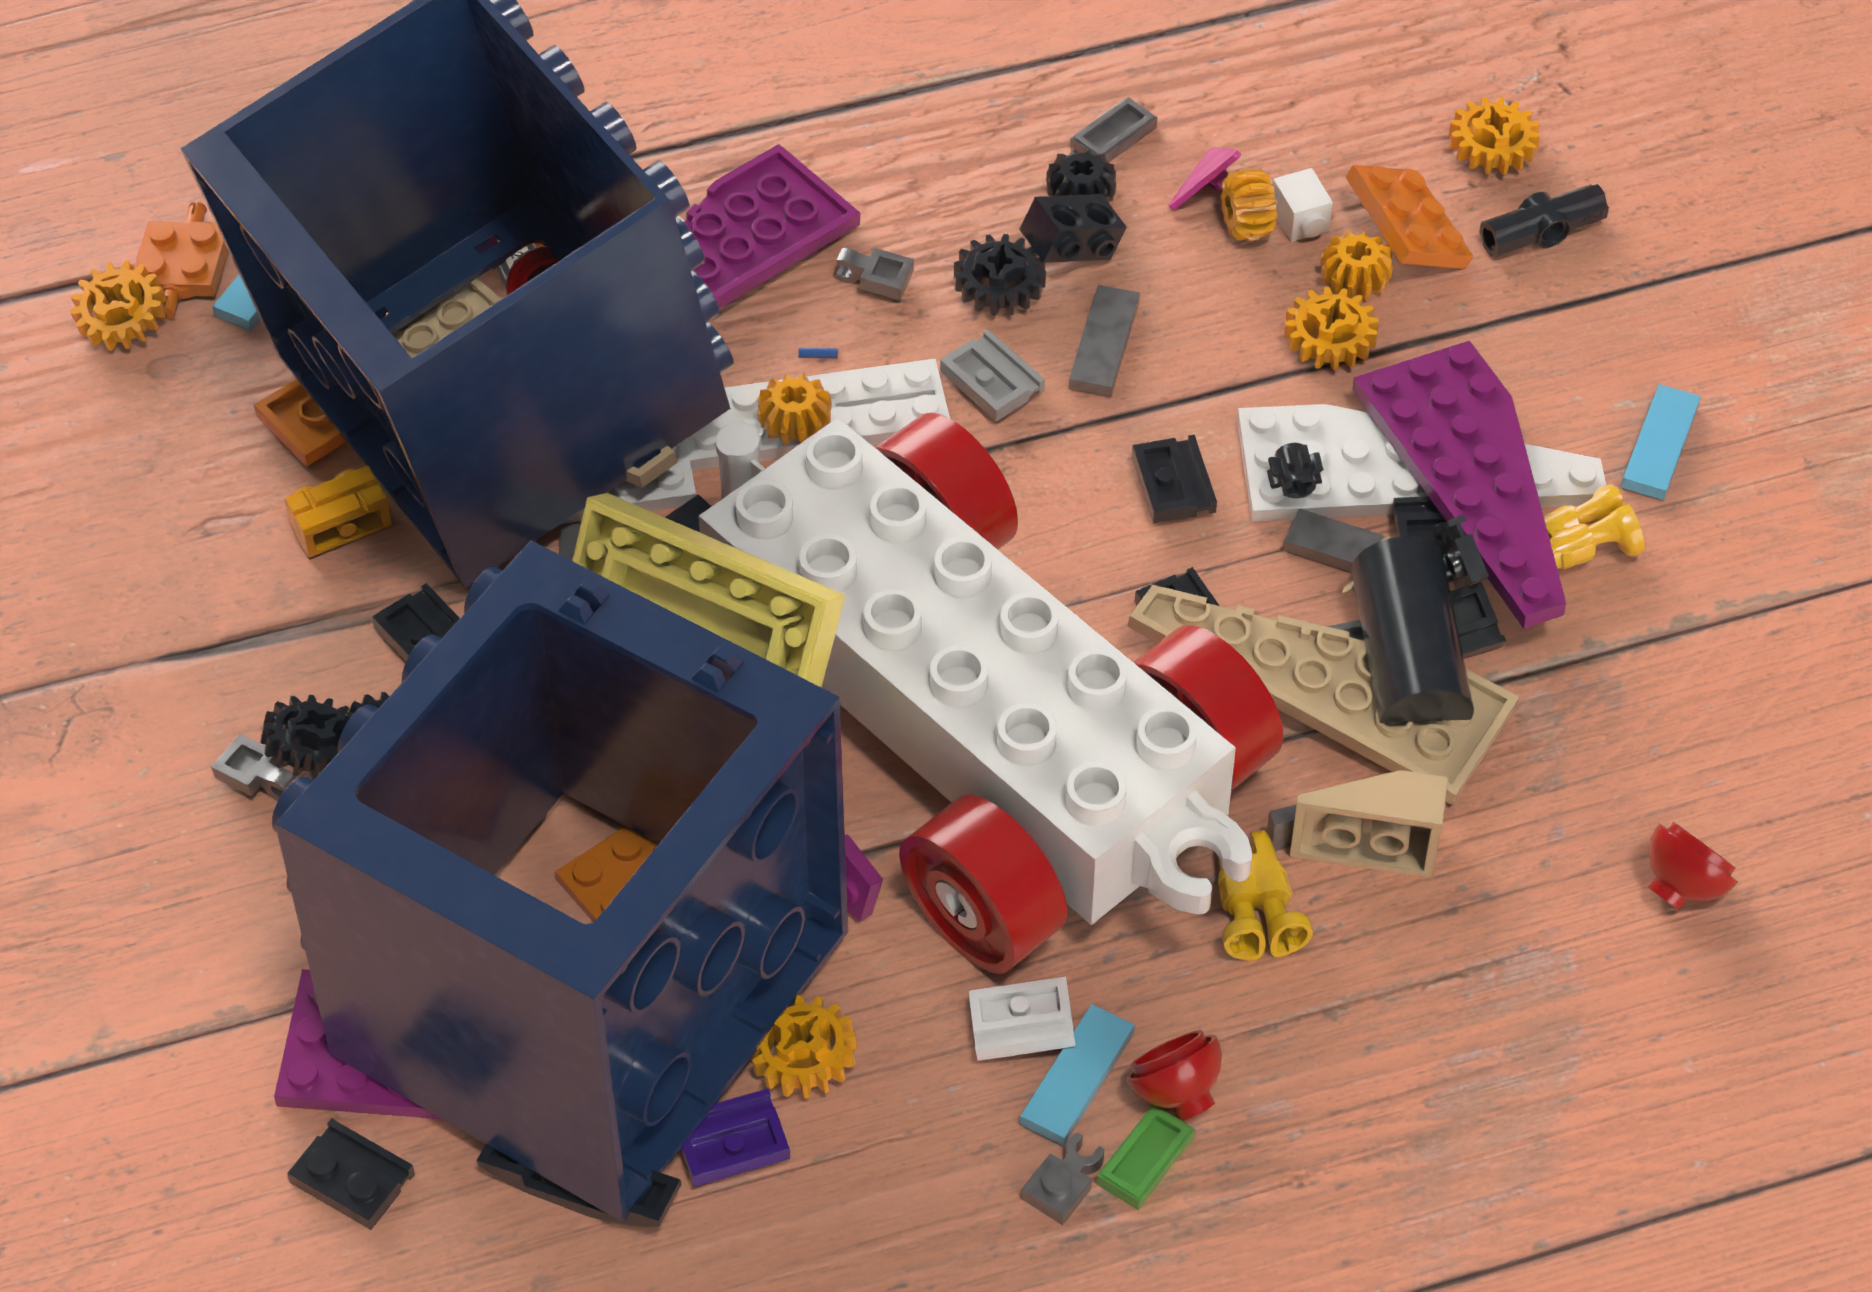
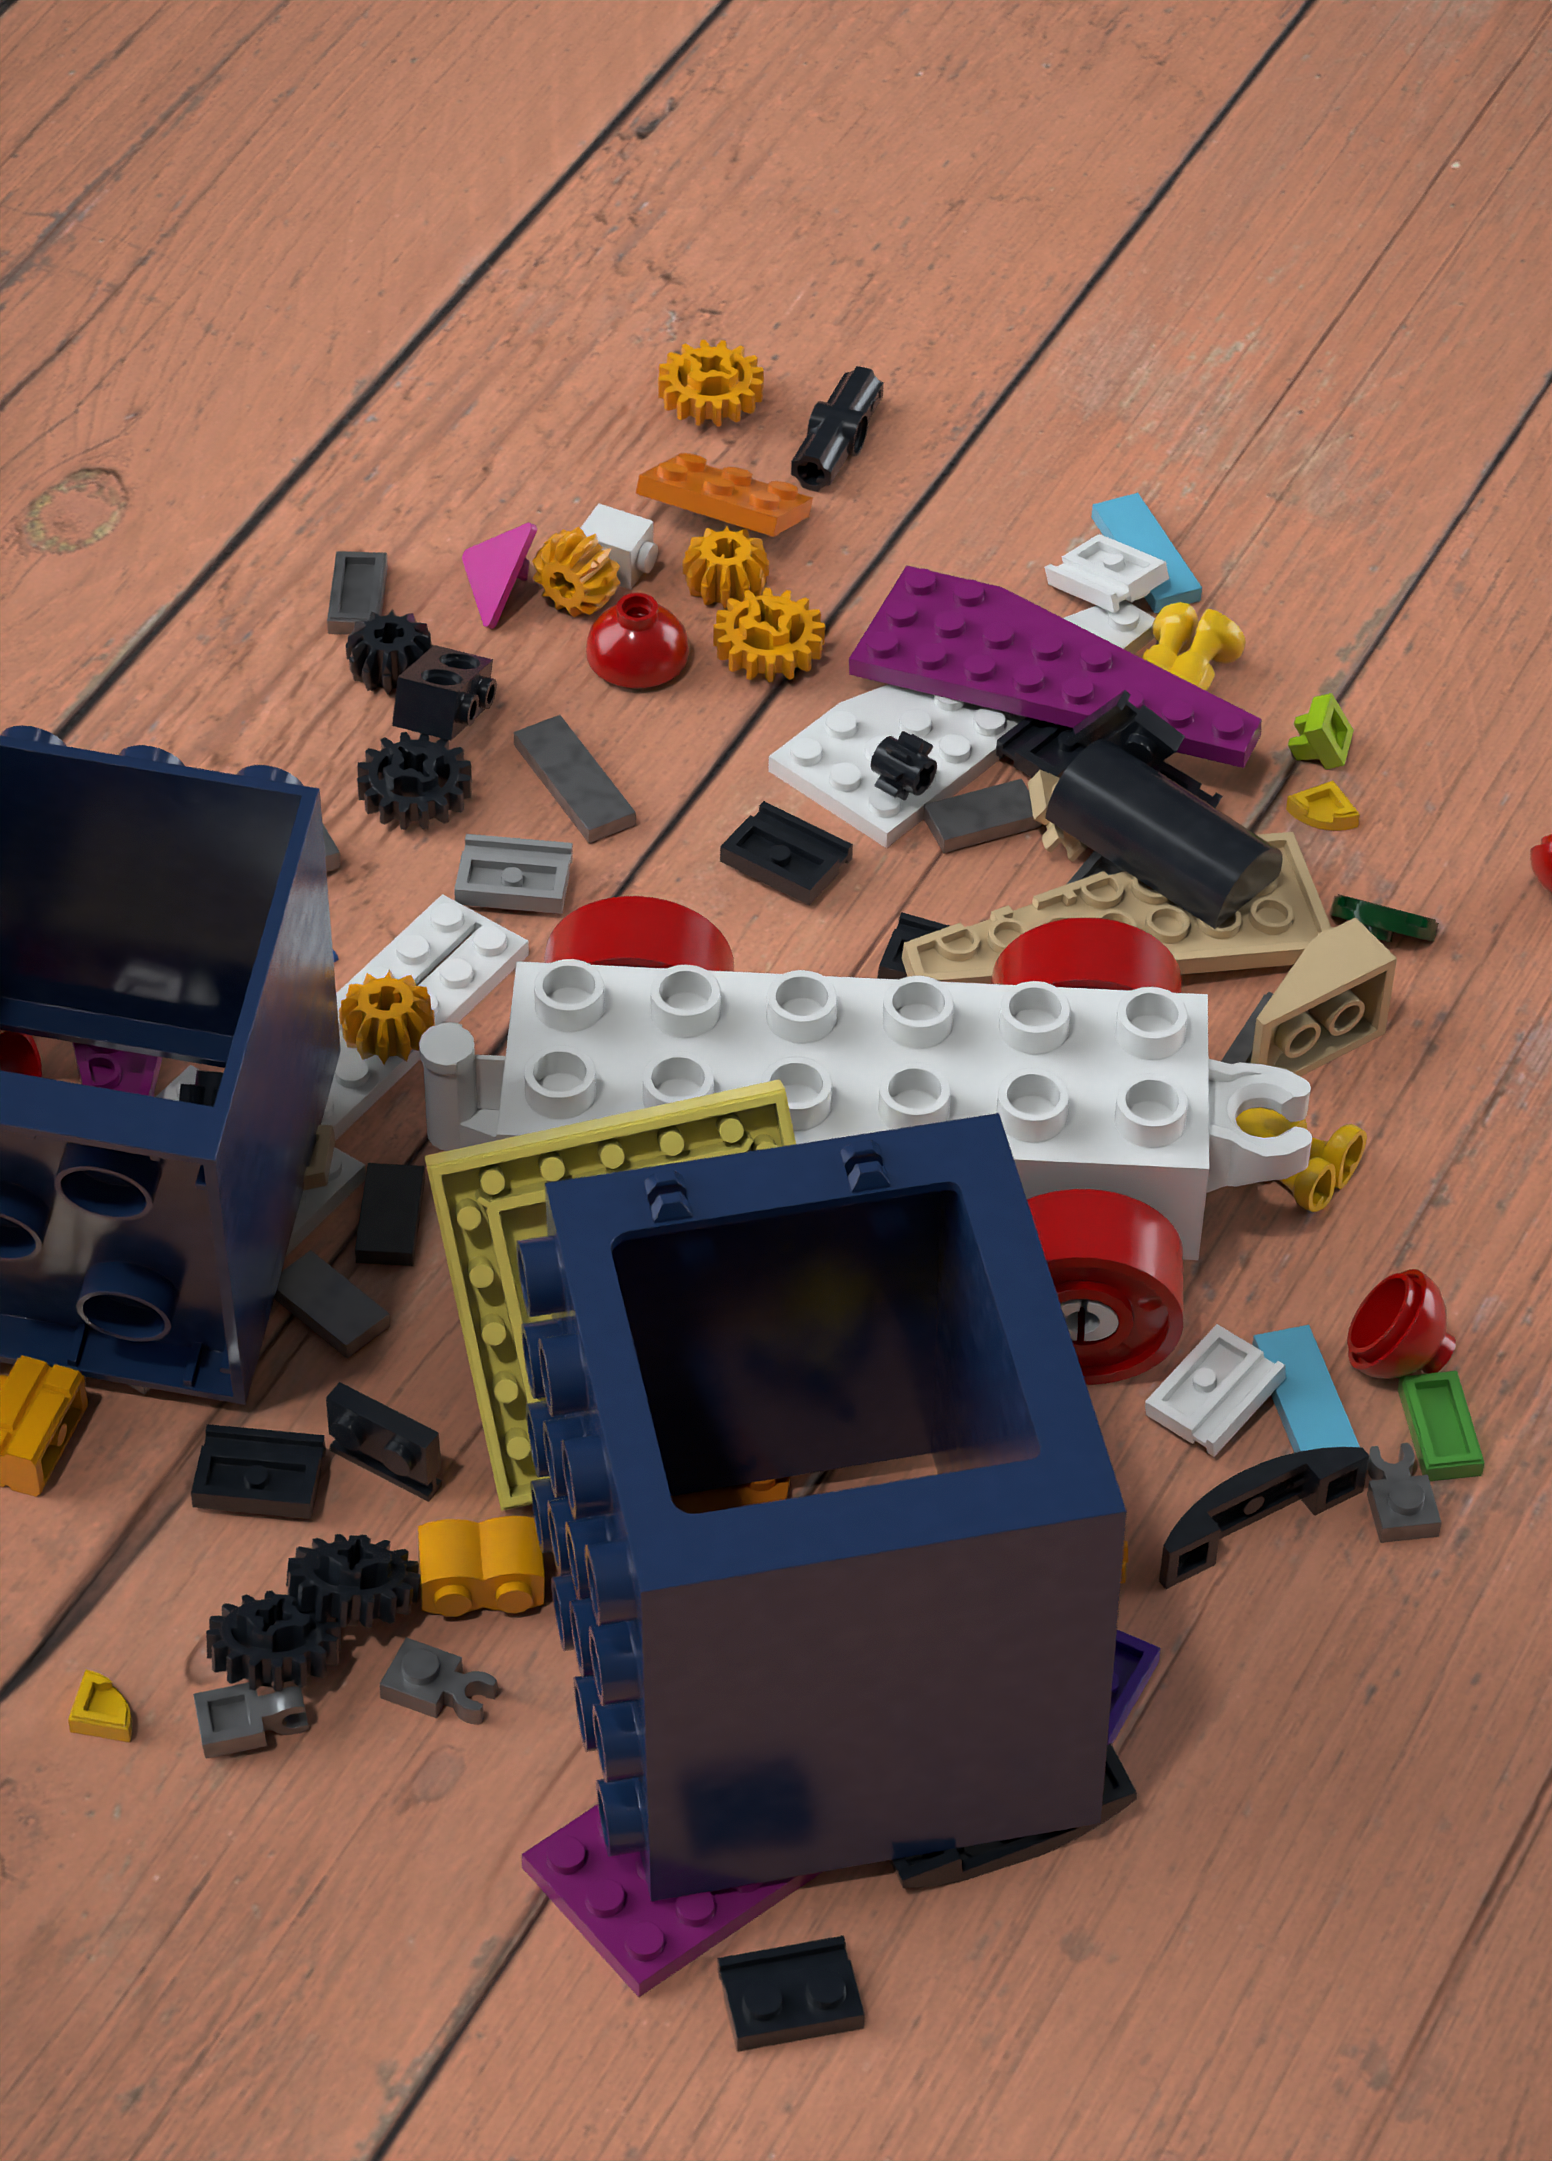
camera: 45 degrees left, 5 degrees down
(196, 706) = (100, 1709): none -> yellow tile
(957, 1100) = (1315, 1476): none -> black slope
(1241, 279) = (637, 643): none -> red piece
(1514, 802) = (1383, 920): none -> dark green plate
(1572, 697) = (1323, 808): none -> yellow tile
(1606, 436) = (1107, 573): none -> white plate
(1628, 647) = (1323, 733): none -> lime tile

